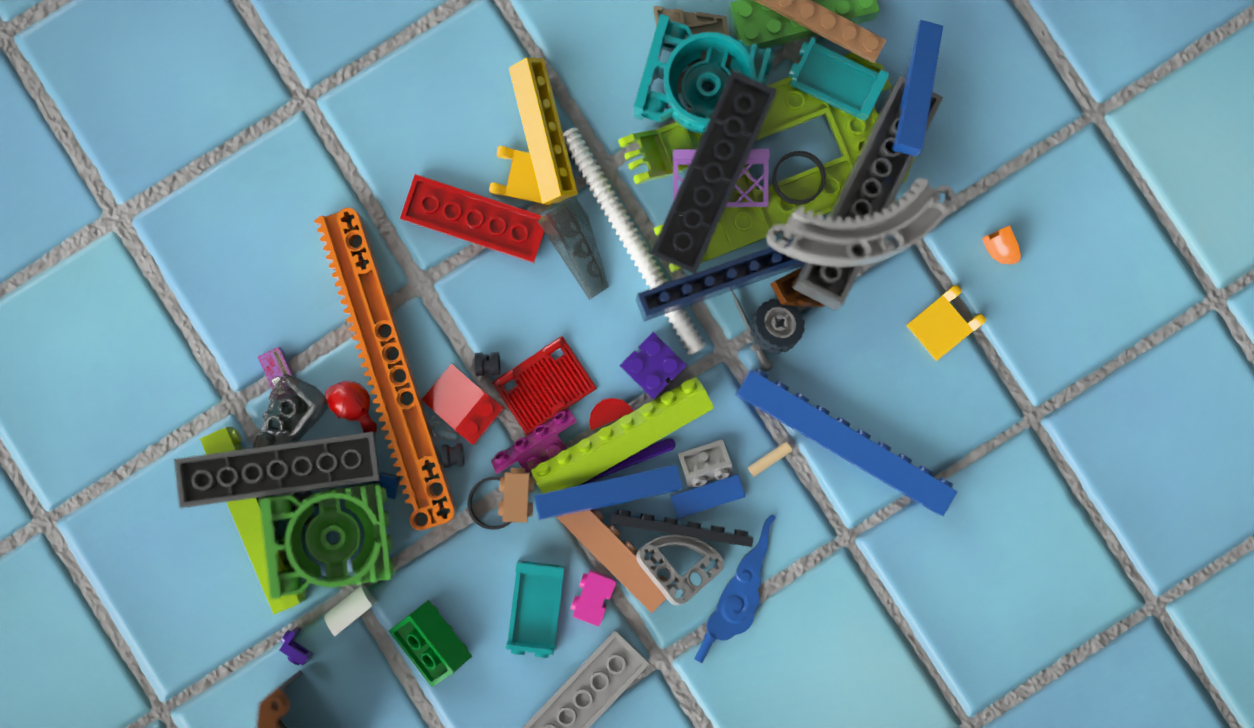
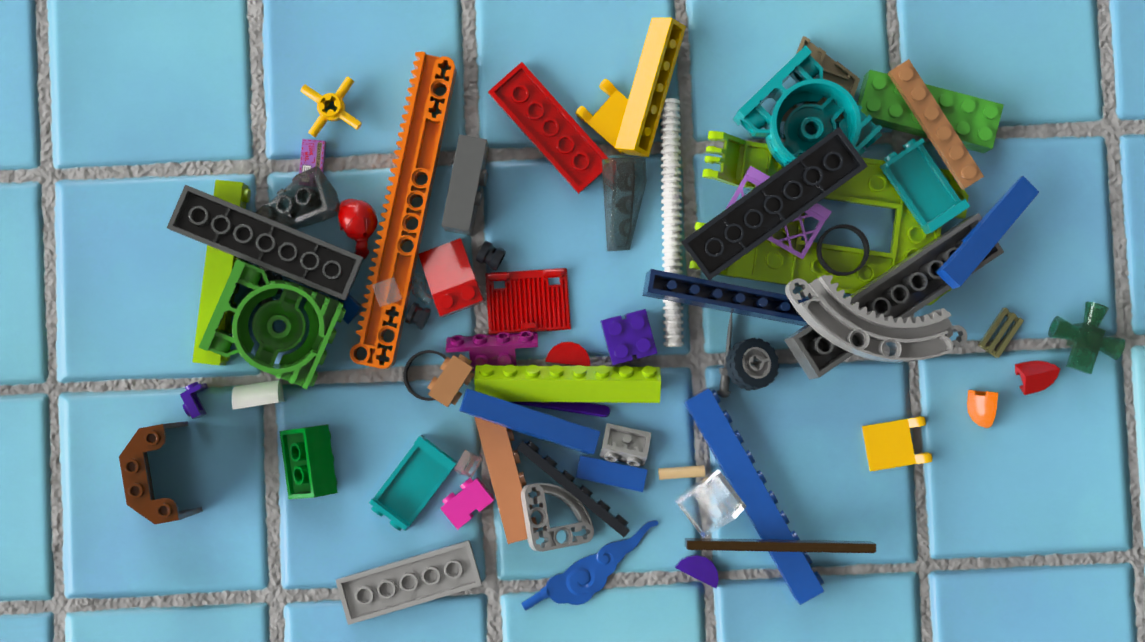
camera: 25 degrees right, 0 degrees up
(257, 313) = (324, 101): none -> yellow bar
(413, 450) = (387, 292): none -> clear tile
(428, 313) = (465, 185): none -> dark grey brick
(574, 562) = (468, 464): none -> clear tile
(788, 296) = (777, 345): reddish brown wing -> none
(812, 472) = (710, 503): none -> clear piece
(835, 535) = (699, 568): none -> dark purple tile
(895, 473) = (780, 545): none -> dark brown tile
(990, 170) = (1011, 317): none -> olive tile
(1034, 190) = (1036, 375): none -> red brick
(1060, 131) = (1087, 338): none -> clear green brick

